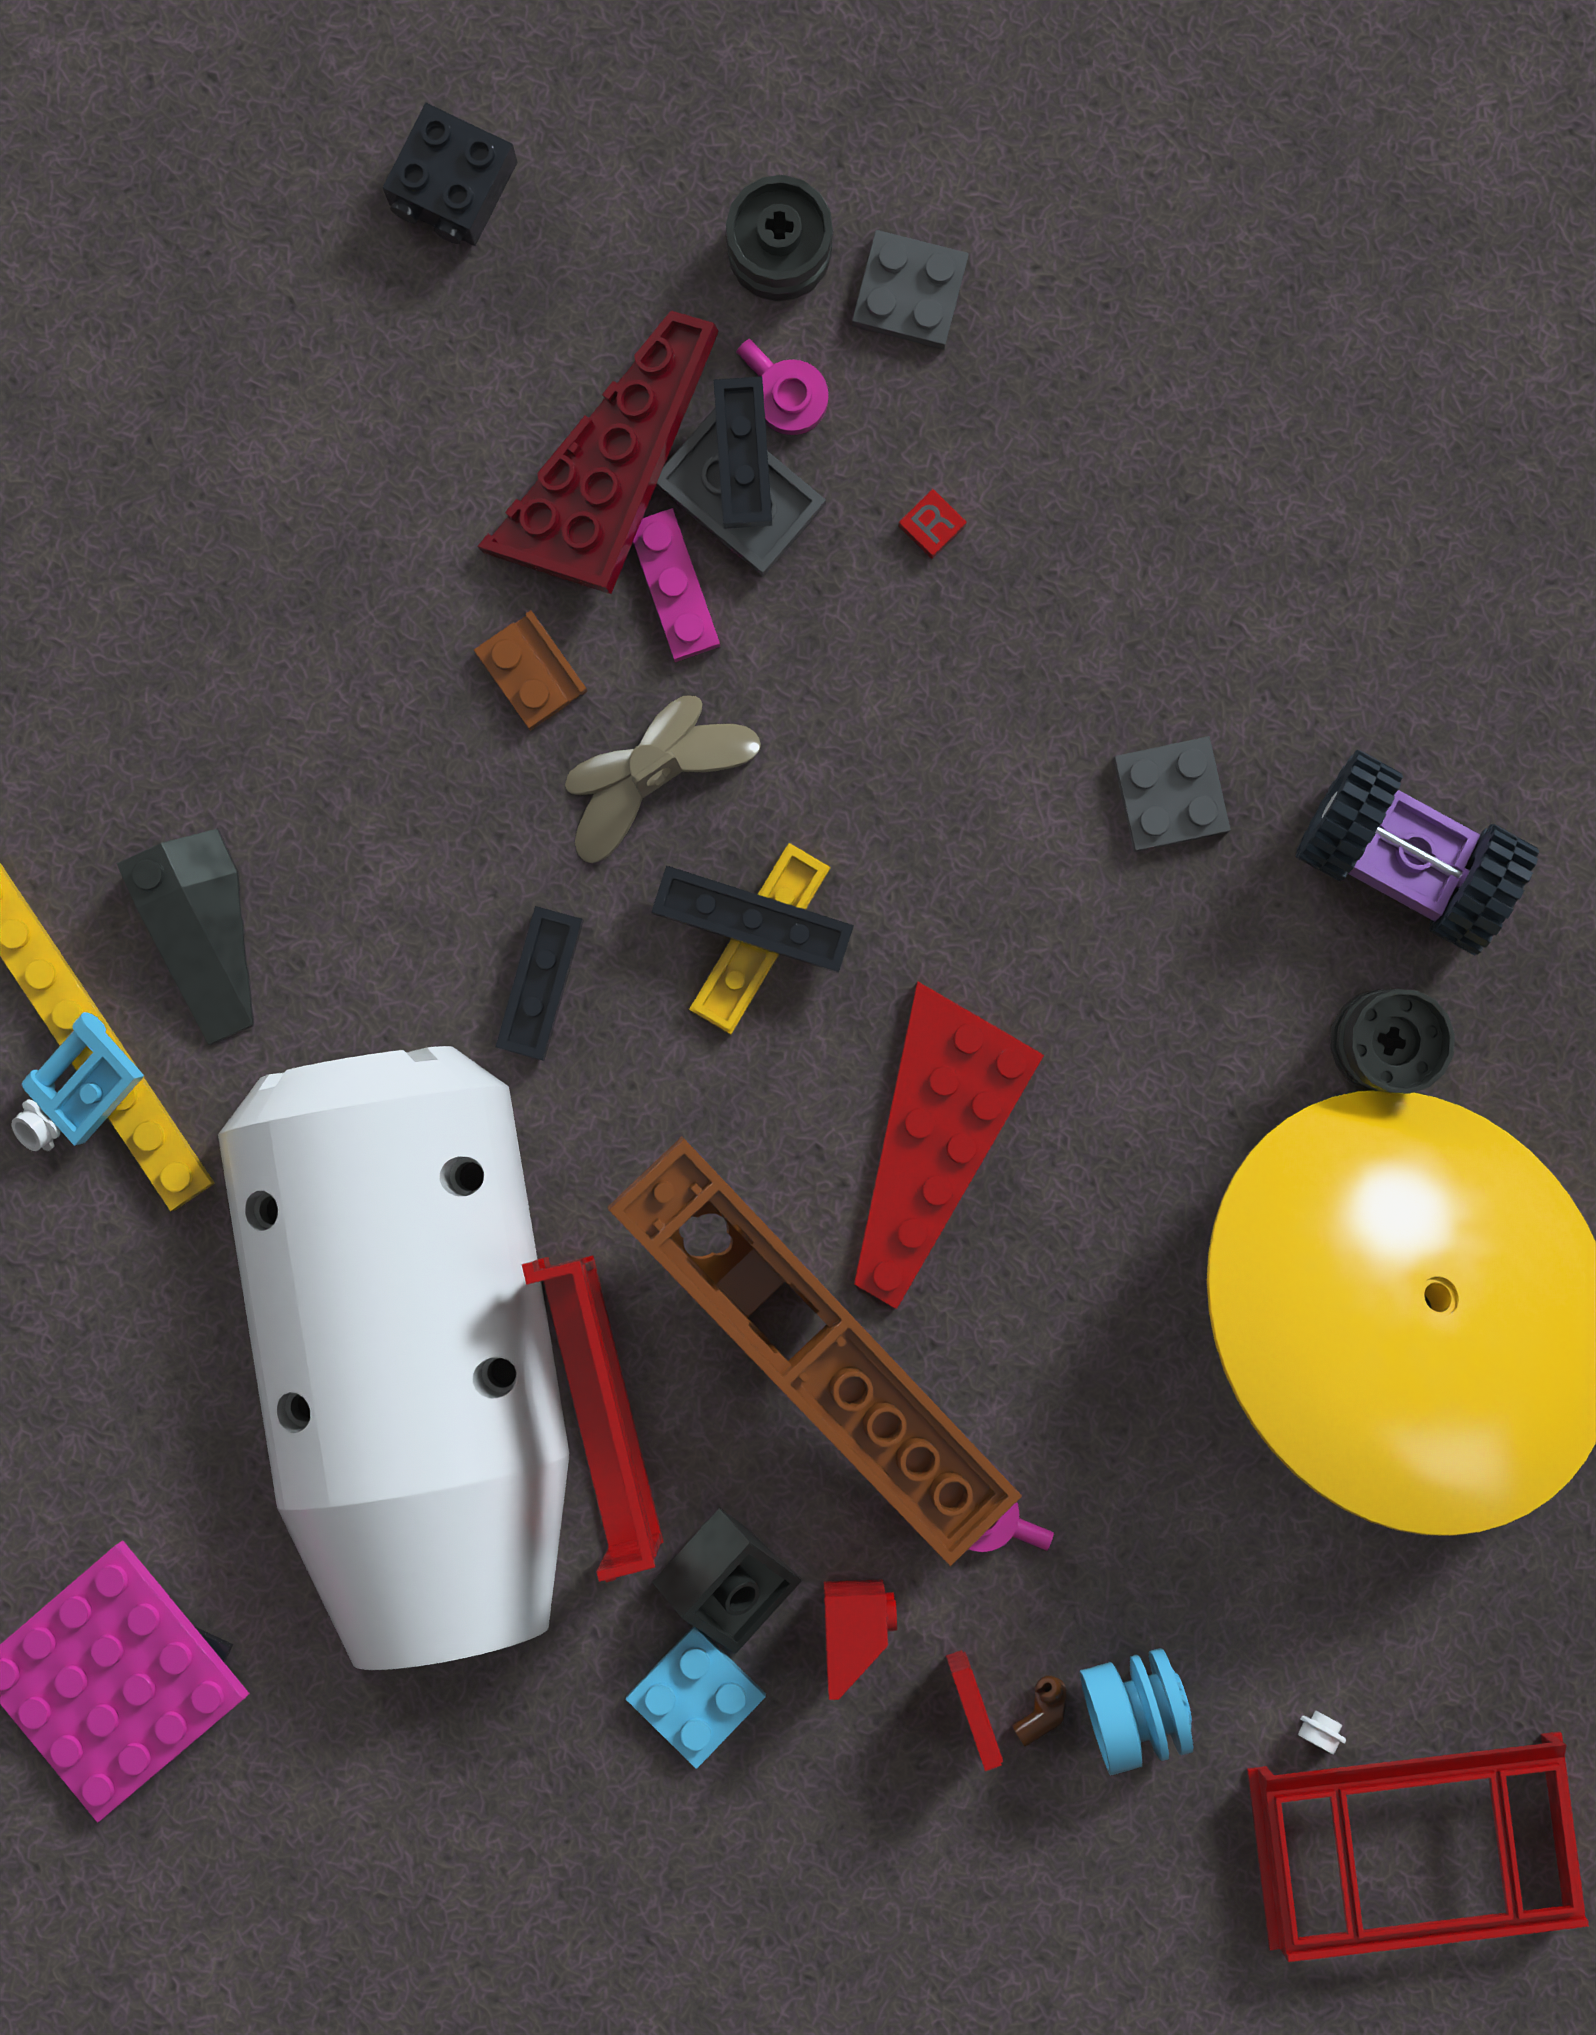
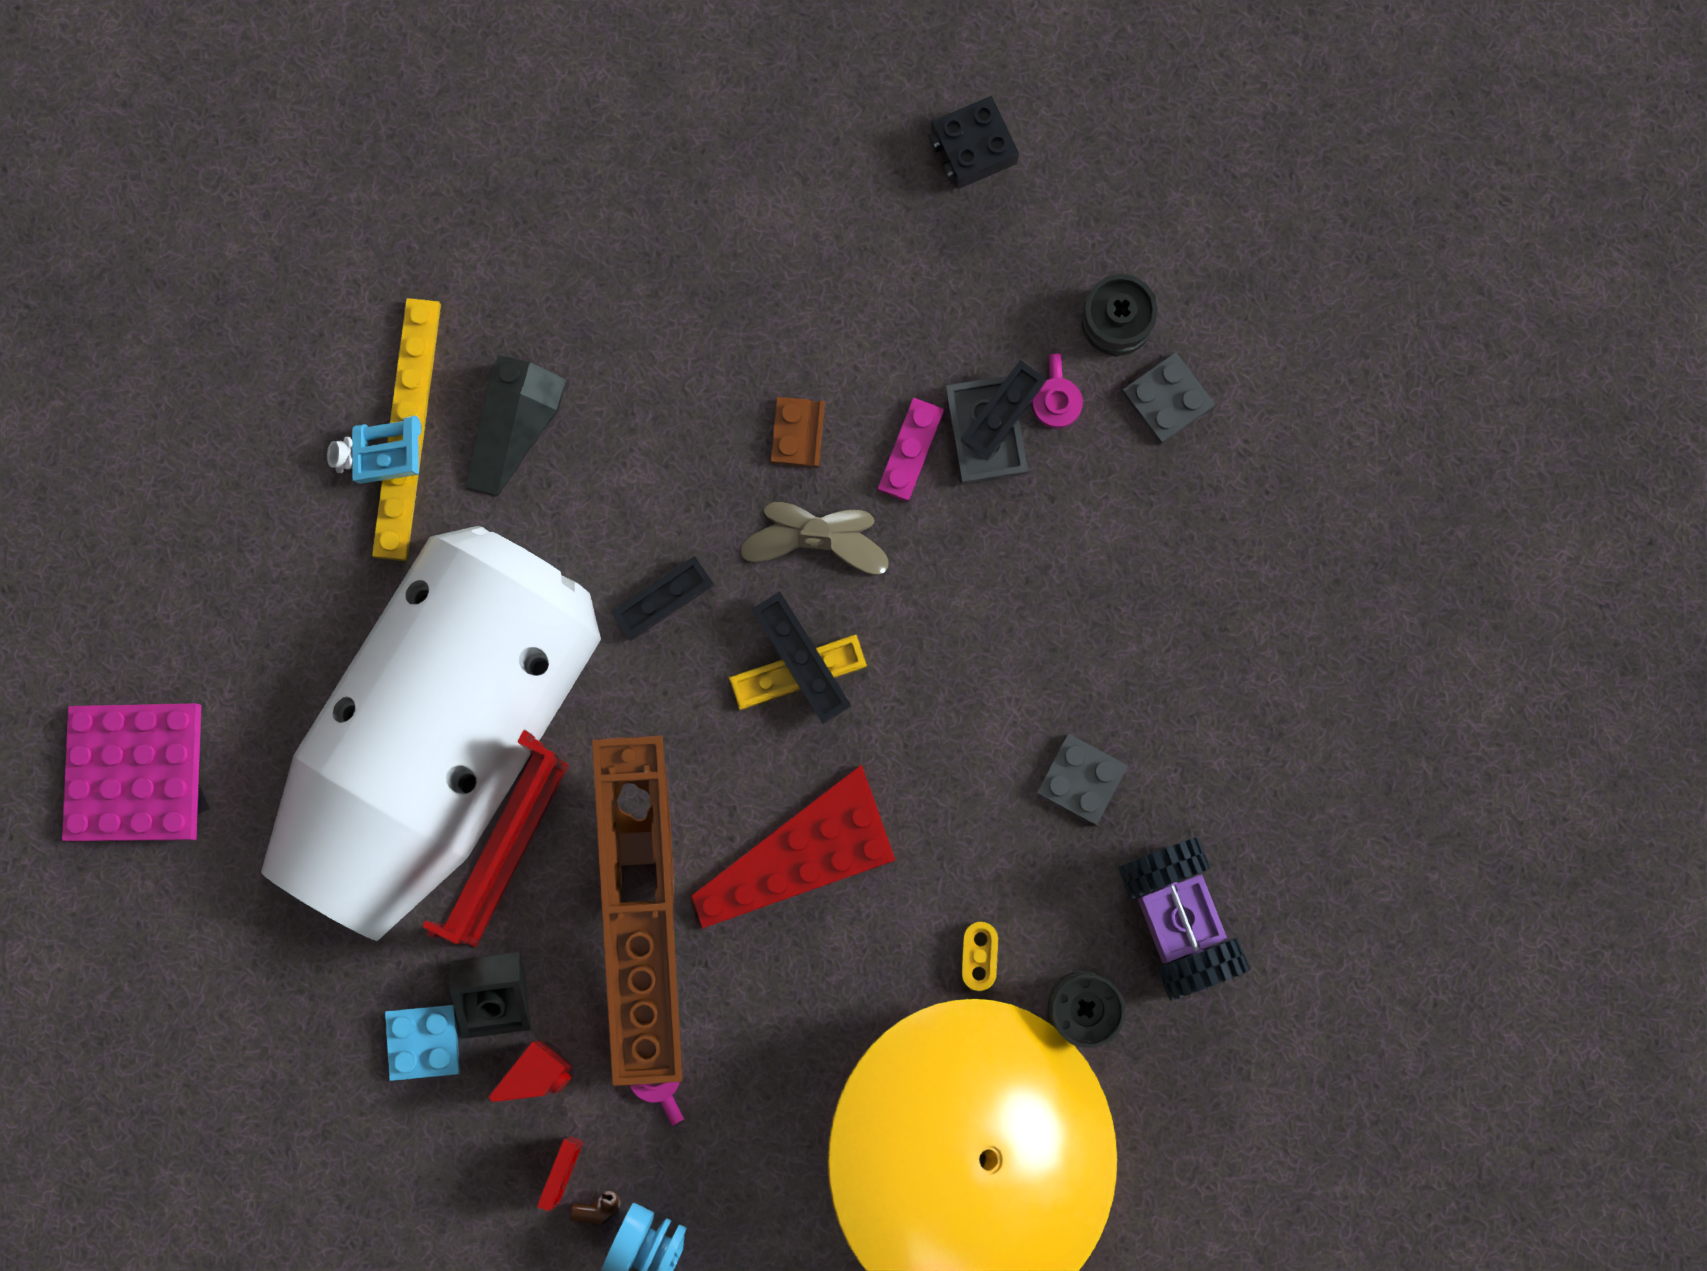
camera: 45 degrees right, 5 degrees down
(602, 476) = (923, 361): dark red wing -> none
(932, 524) = (1075, 530): red tile -> none
(1224, 1081) = (979, 956): none -> yellow plate

